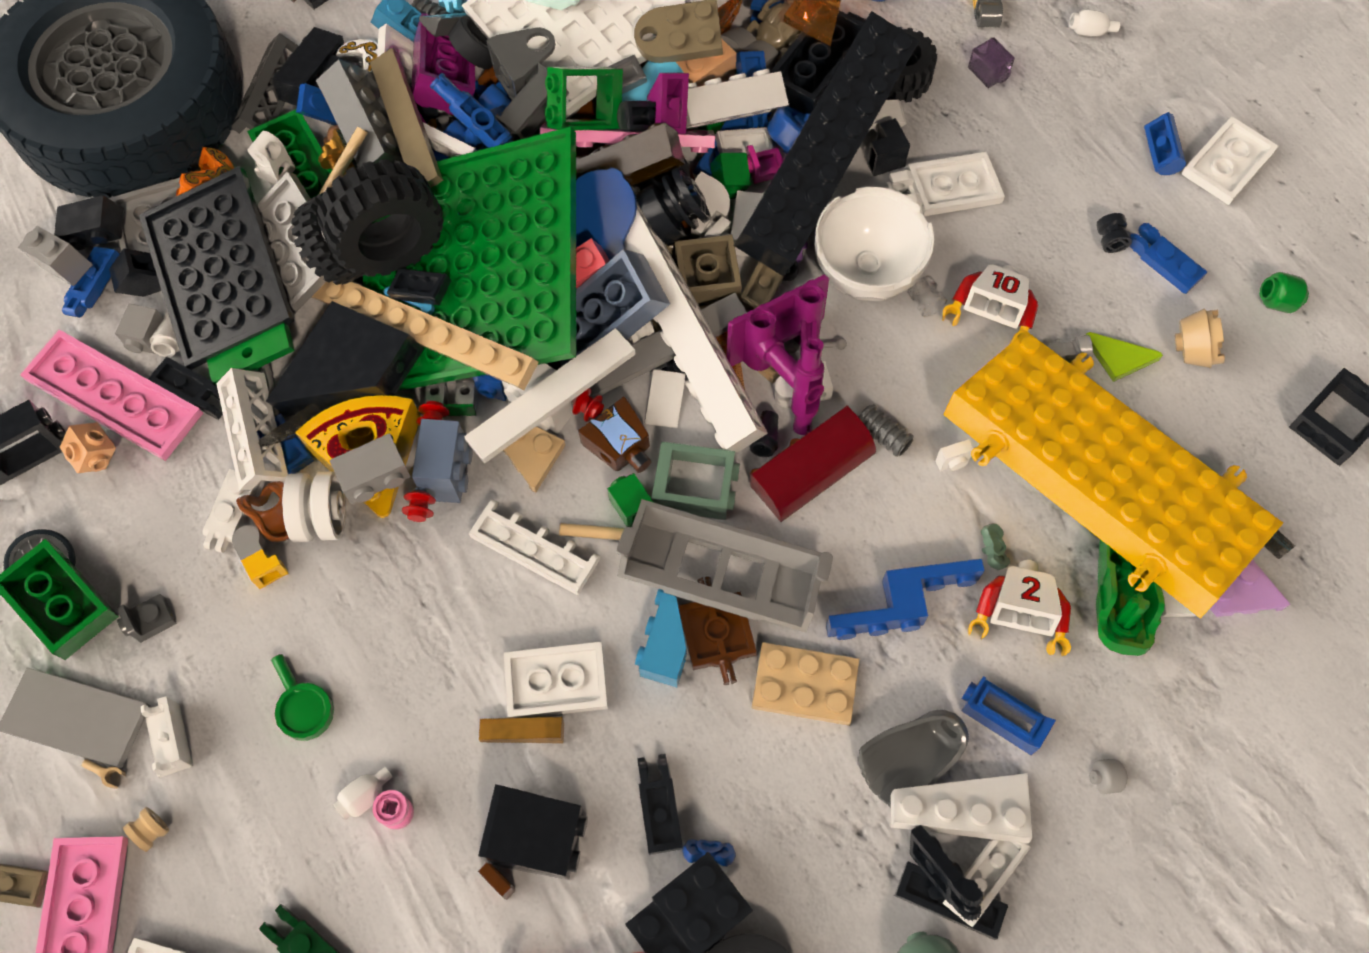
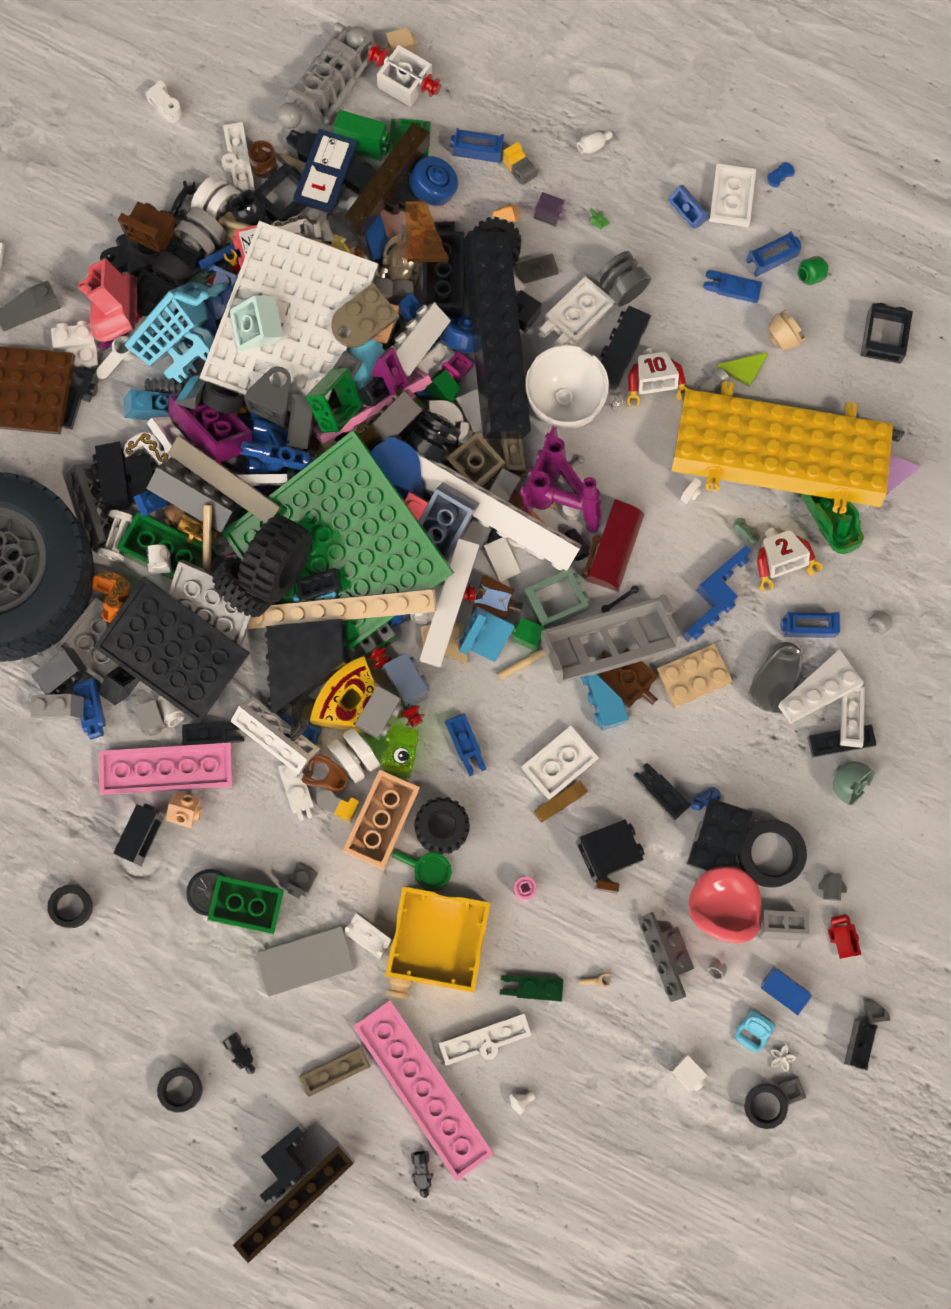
camera: 40 degrees left, 10 degrees up
(103, 772) = (347, 977): tan hand -> none
(237, 802) = (438, 940): none -> yellow tile
(241, 135) = (117, 531): none -> white hose
(253, 352) = (228, 700): green tile -> none
(286, 606) = (381, 820): none -> light nougat brick
(339, 639) = (441, 806): none -> black tyre
(361, 794) = (500, 892): white plant -> none
(371, 538) = (401, 751): none -> clear neon green brick
(460, 580) = (464, 742): none -> blue hinge
(533, 549) = (493, 699): white hinge -> none
(575, 465) = (485, 634): none -> dark azure bracket
(802, 530) = (606, 608): none -> black hinge
(886, 431) = (642, 499): dark grey piece -> none
(932, 115) = (536, 269): none -> clear smoke plate
(940, 36) = (508, 212): none -> light orange slope
(945, 874) = (833, 729): black hinge -> none
(980, 246) = (623, 343): none -> black brick
(1030, 172) = (623, 278): none -> dark grey wheel
(1044, 103) = (598, 219): none -> bright green plant
(1114, 232) = (694, 288): black wheel -> none
(1244, 248) = (774, 253): none -> blue window
(1307, 171) = (780, 174): none -> blue piece

